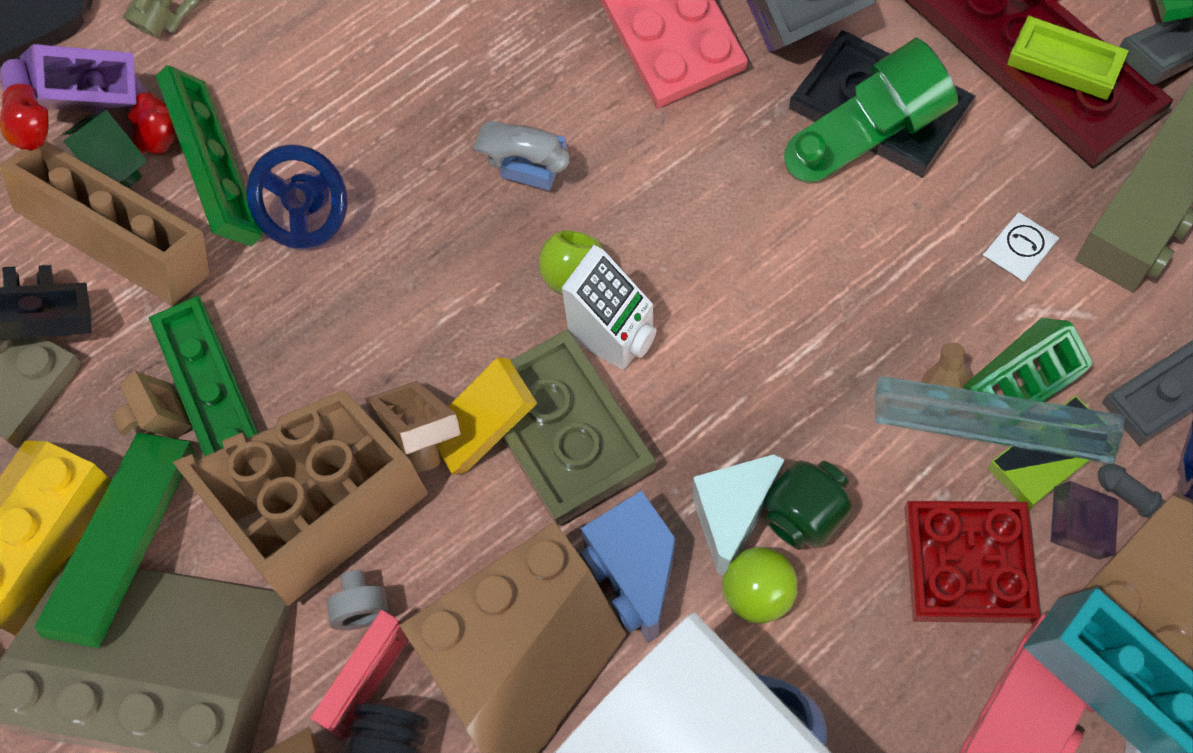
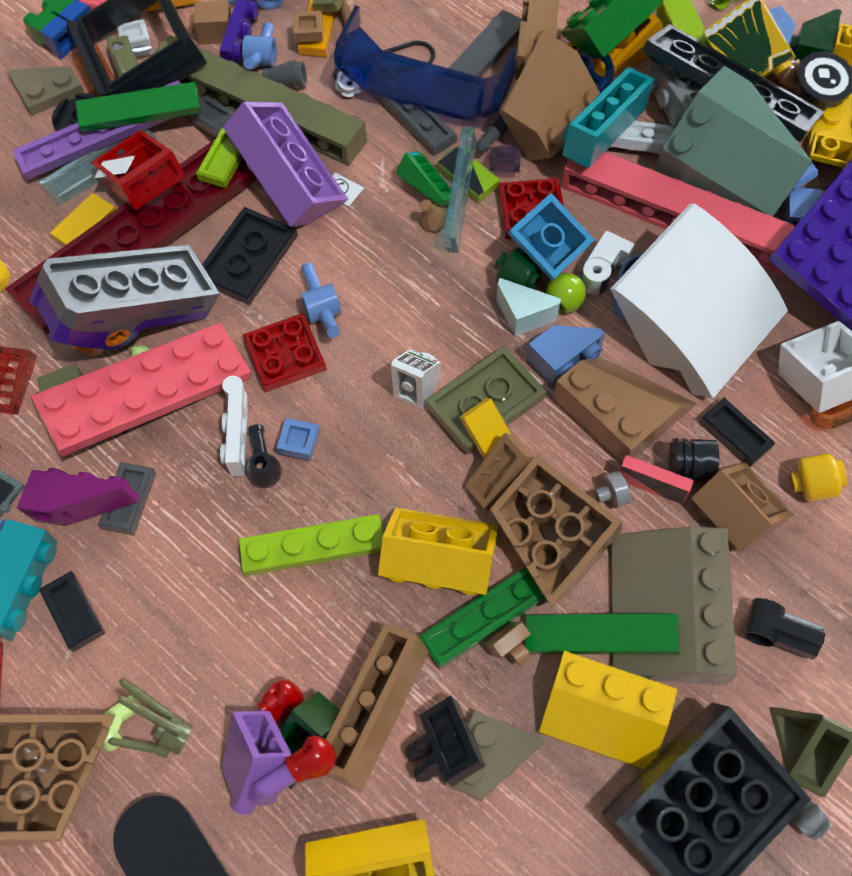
camera: 100 degrees left, 0 degrees up
(208, 156) = (305, 652): green tile -> none
(315, 324) = (438, 551): none -> yellow slope
(316, 192) = (333, 579): clear blue piece -> none
(369, 177) = (311, 545): none -> lime plate
(510, 112) = (272, 471): none -> black bar
(534, 144) = (298, 446): light grey piece -> none
(562, 255) = (379, 403): lime piece -> none
(566, 78) = (235, 426): none -> white plate
(693, 149) = (284, 352): none -> red tile
(771, 192) = (320, 301): none -> medium blue piece
(826, 666) = (607, 254): none -> white leg
(855, 548) = (551, 236): none -> dark azure slope
(902, 93) = (261, 234): green piece -> none
(1054, 137) = (284, 162): none -> medium lavender slope

